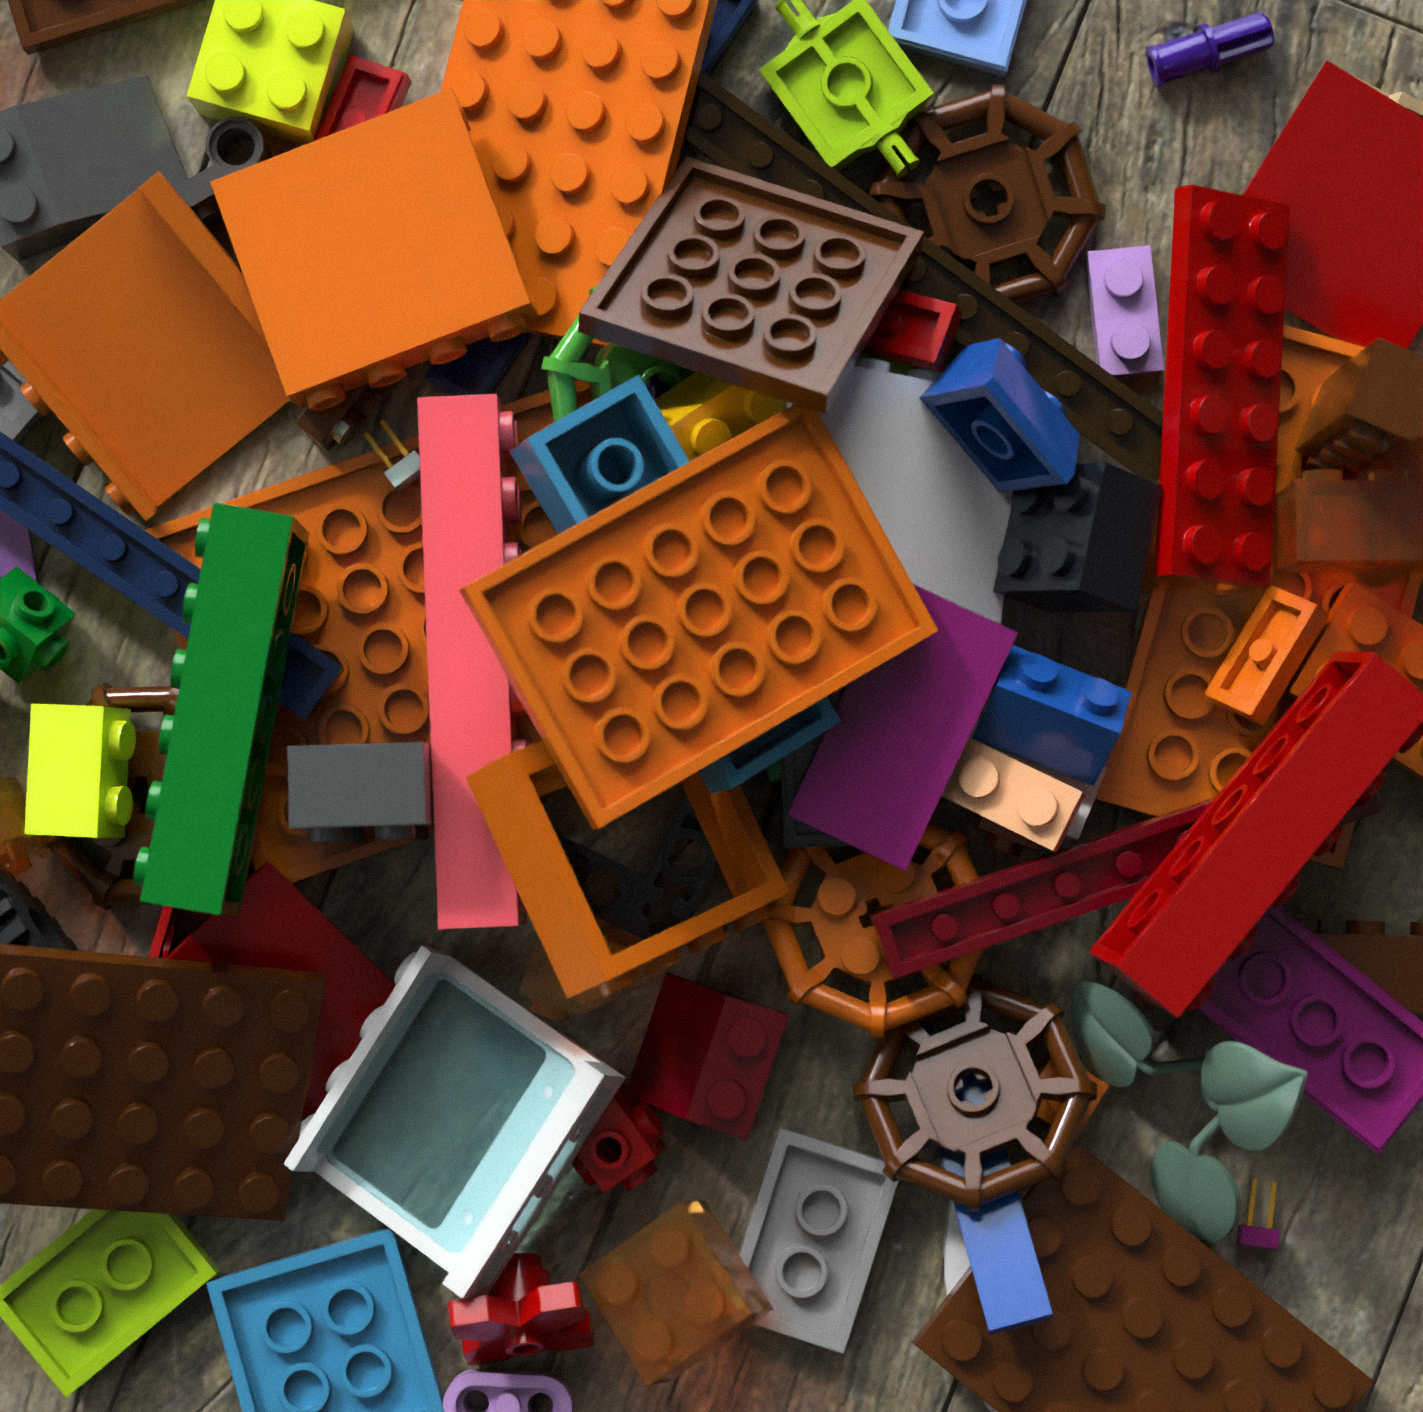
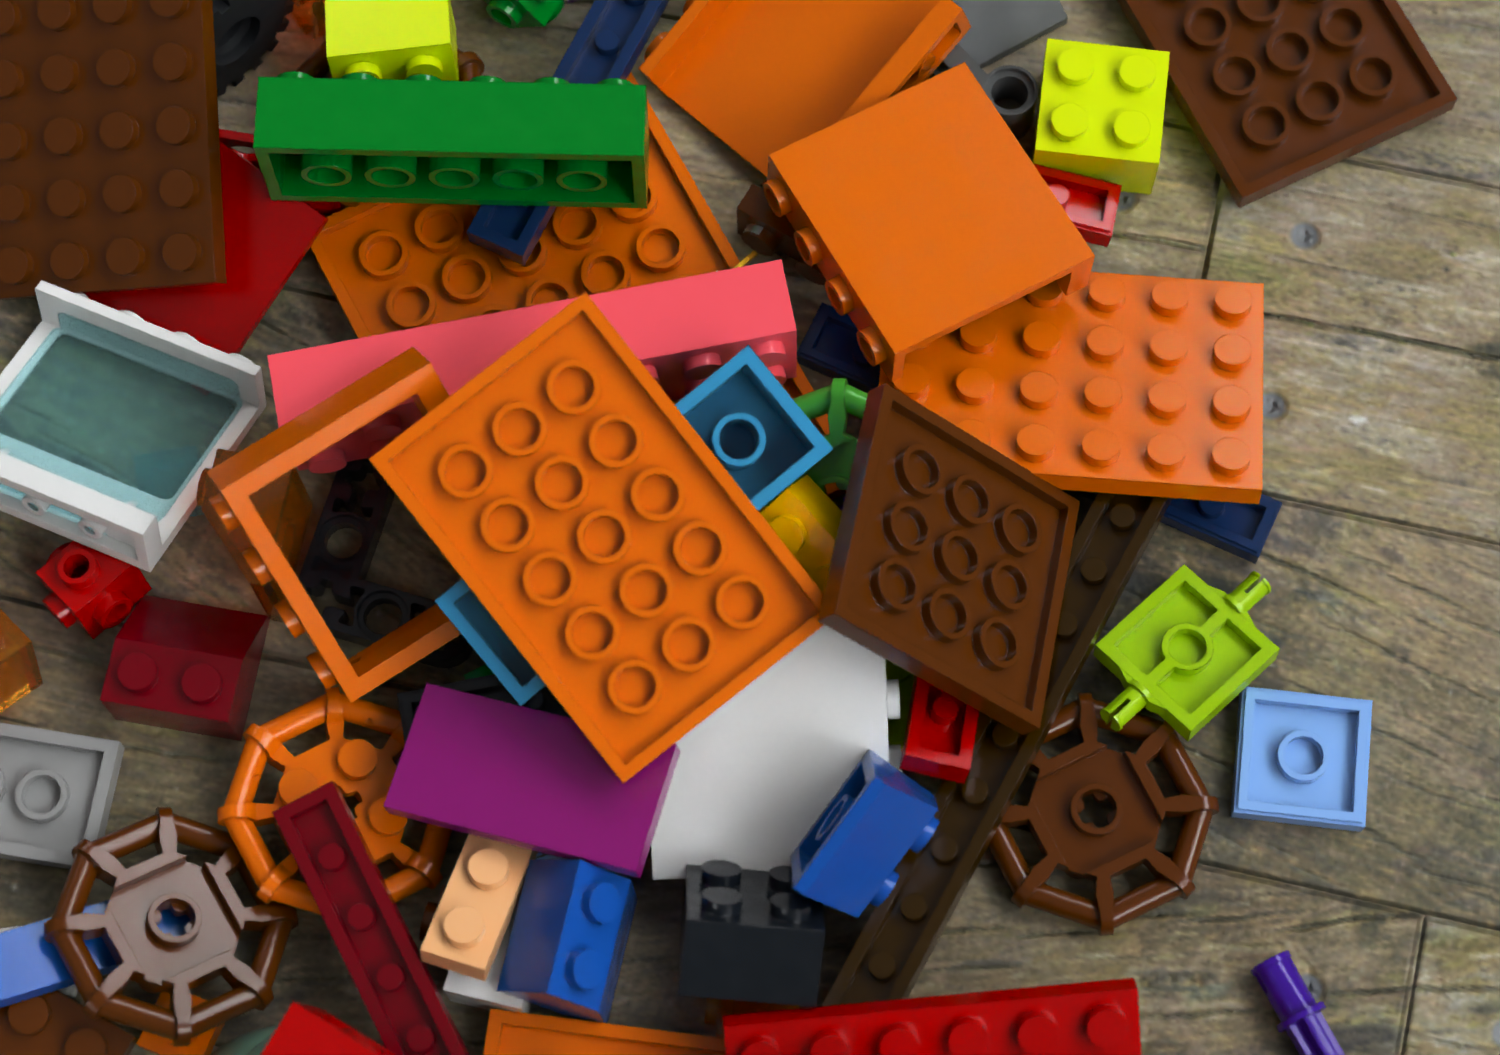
camera: 80 degrees right, 15 degrees down
(361, 787) = (390, 258): dark grey brick -> none
(1124, 311) = (1008, 962): lavender plate -> none

